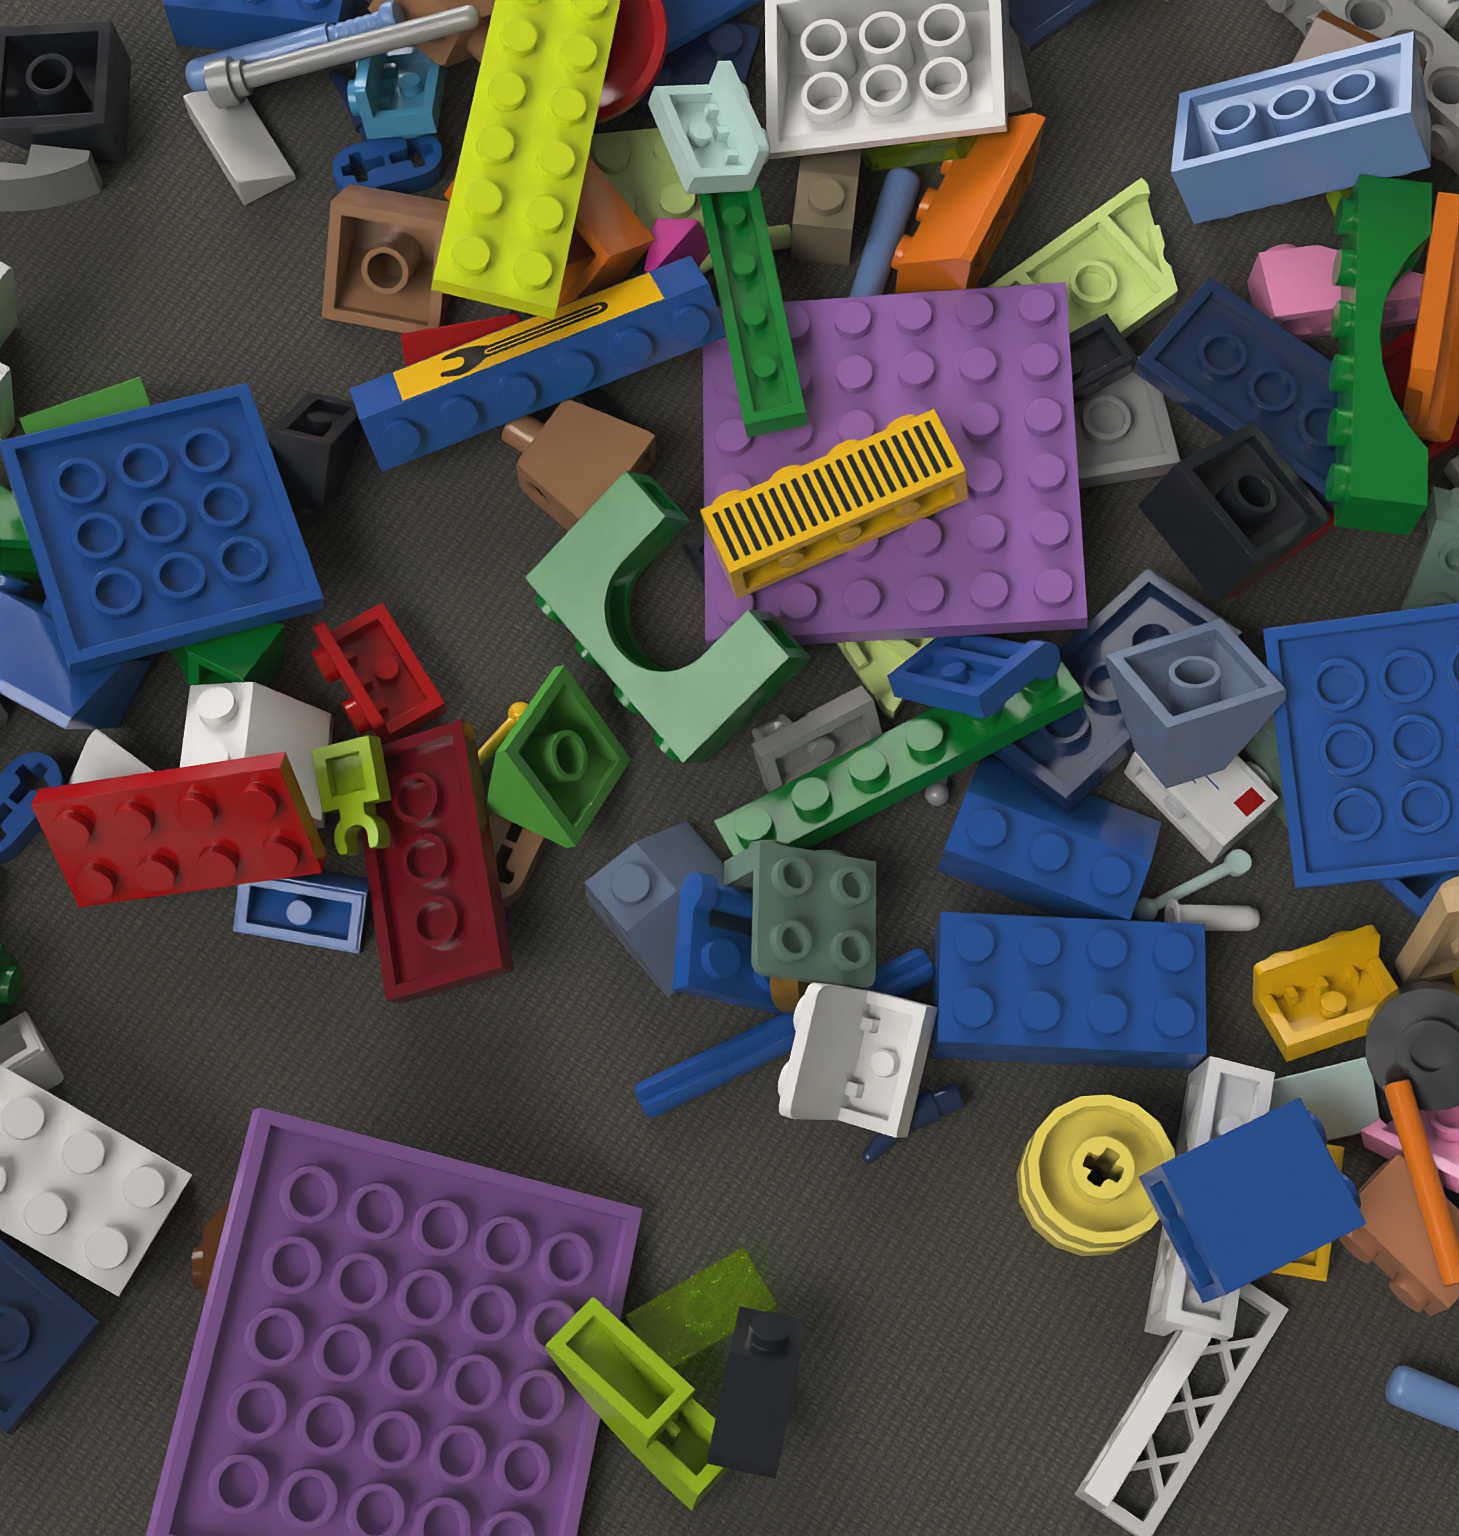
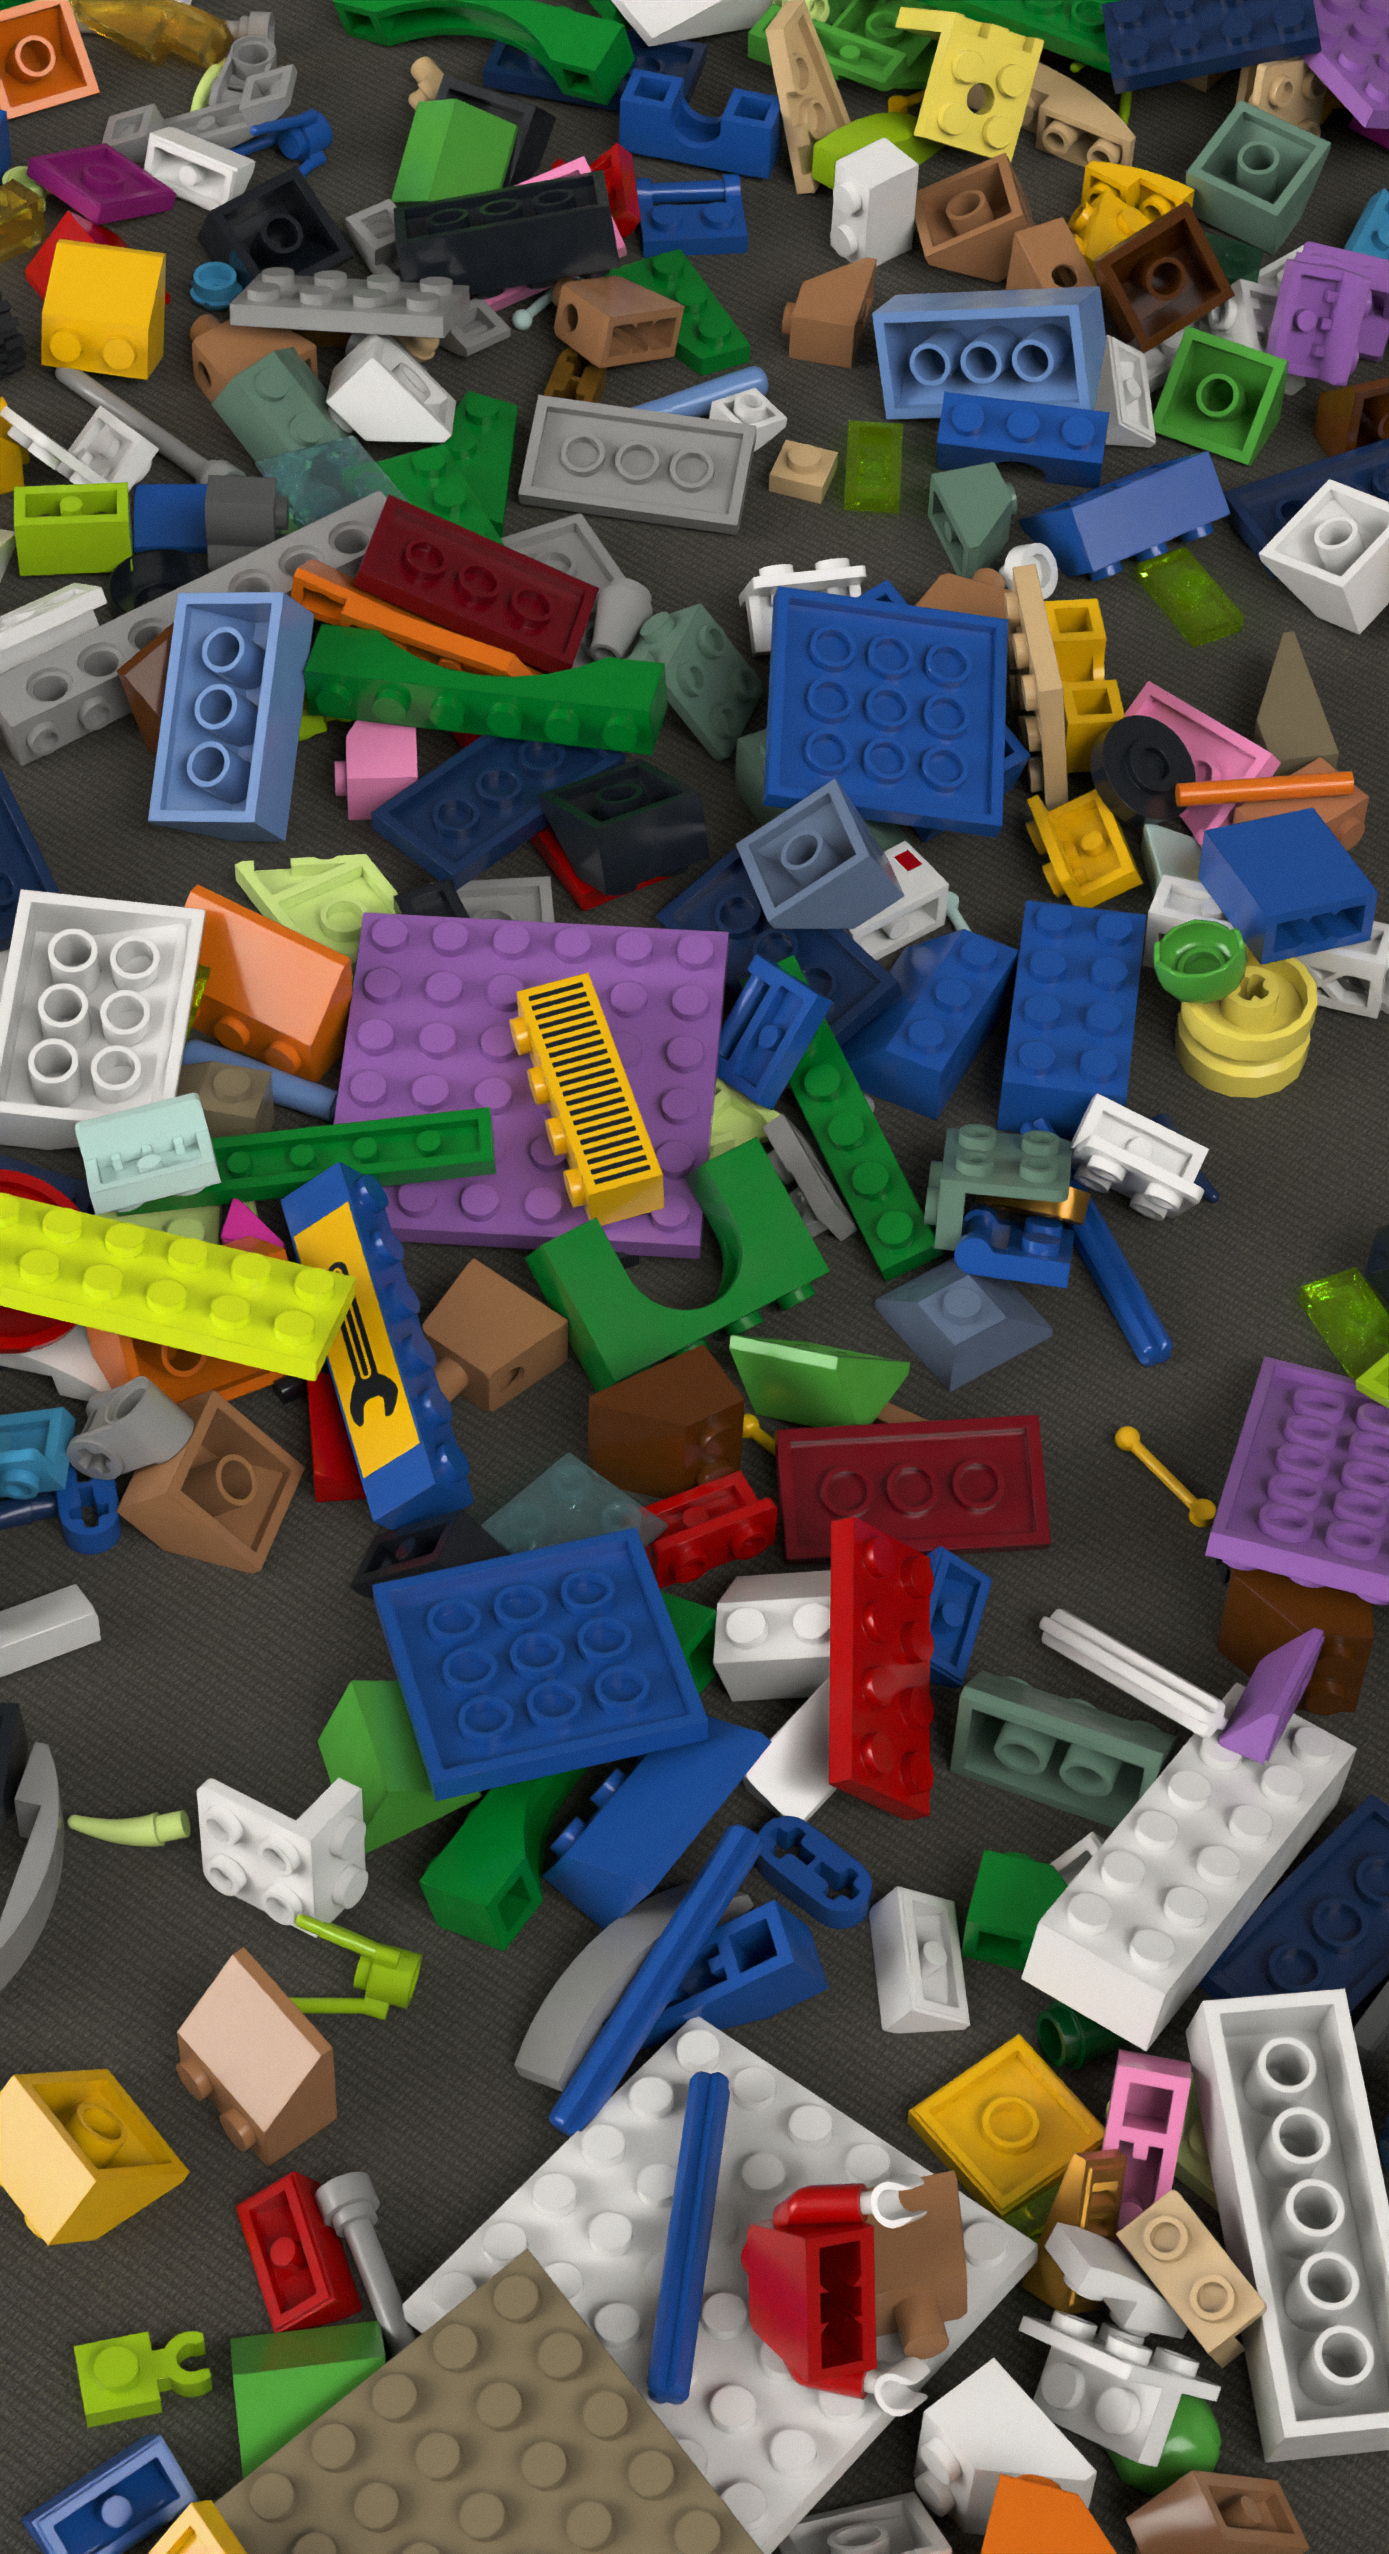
camera: 85 degrees left, 20 degrees down
(44, 260) = (140, 1831): none -> yellowish green helmet
(132, 1016) = (1056, 1749): none -> sand green slope
(137, 1196) = (1272, 1697): none -> medium lavender slope
(197, 1074) = (1134, 1673): none -> white axle
(350, 783) = (810, 1531): lime plate -> none
(367, 558) = (568, 1506): none -> clear light blue hinge
(414, 171) = (129, 1430): none -> light grey piece
(467, 633) = (667, 1427): none -> reddish brown slope
(535, 1077) = (1201, 1510): none -> yellow hinge
(1108, 1100) = (1200, 961): none -> bright green hair
(1213, 916) = (1003, 919): white piece -> none

